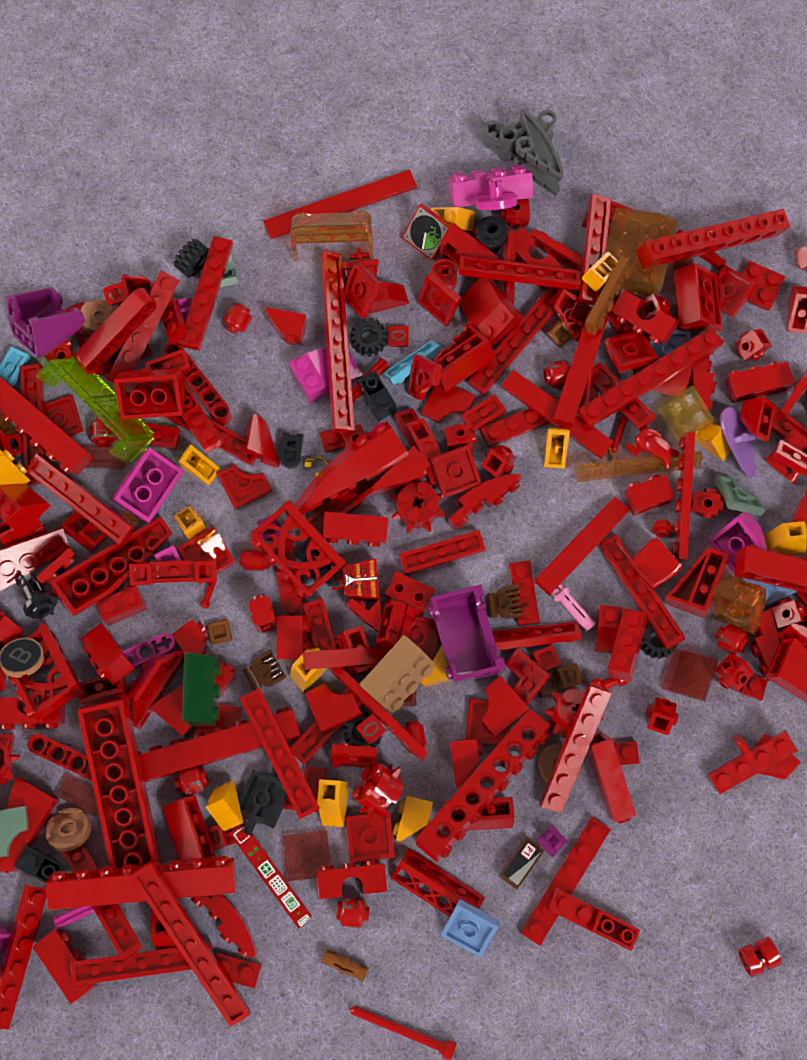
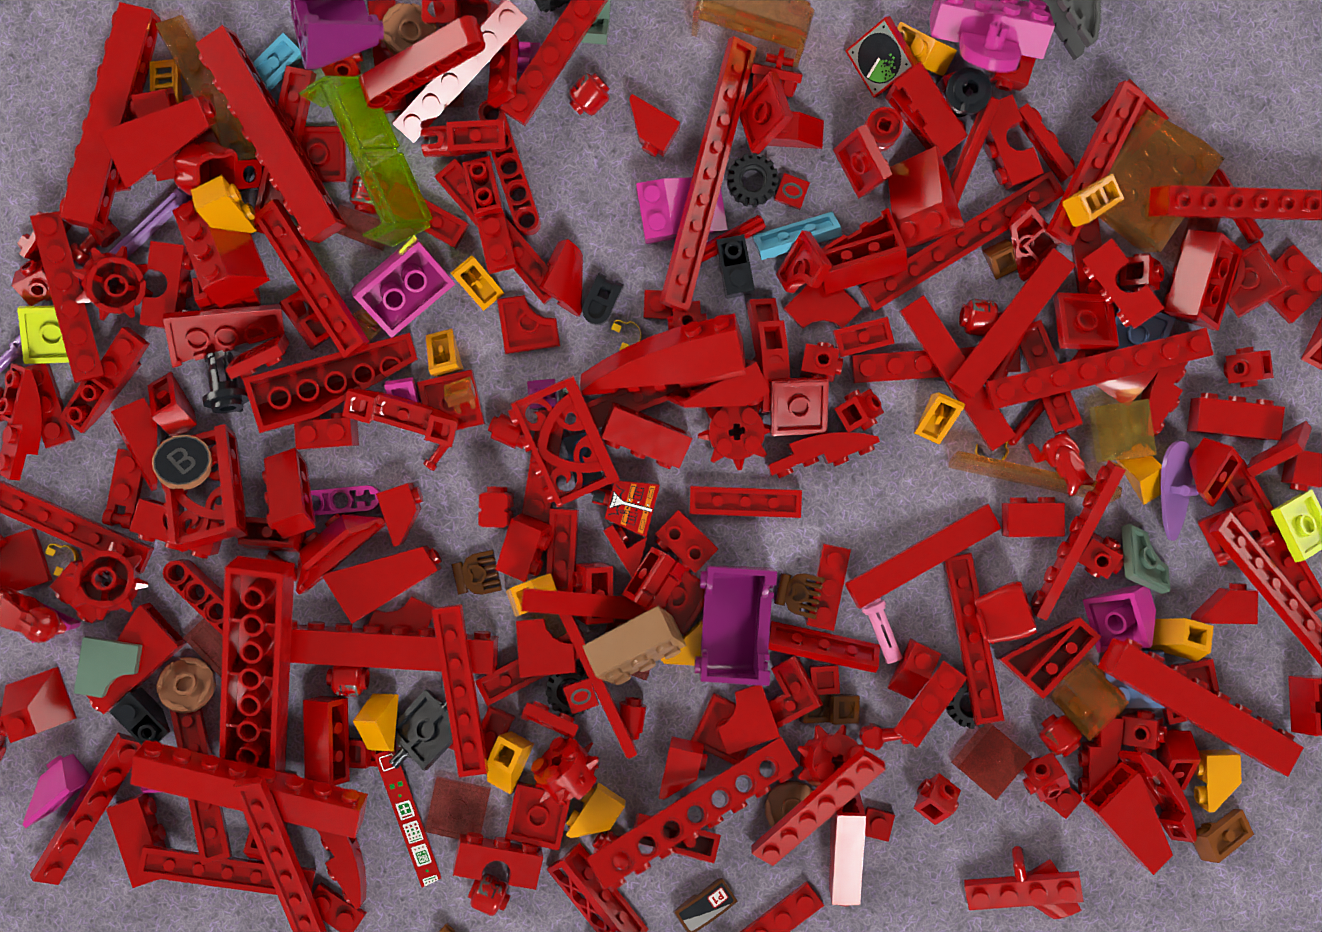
camera: 20 degrees right, 15 degrees up
(150, 393) = (440, 170): red slope -> none
(201, 690) = (388, 583): dark green slope -> none
(219, 632) = (438, 506): dark orange tile -> none
(519, 272) = (982, 164): red plate -> none
(552, 841) = (750, 893): magenta tile -> none
(605, 301) = (1080, 246): dark orange plate -> none
(661, 528) = (1031, 567): red plate -> none

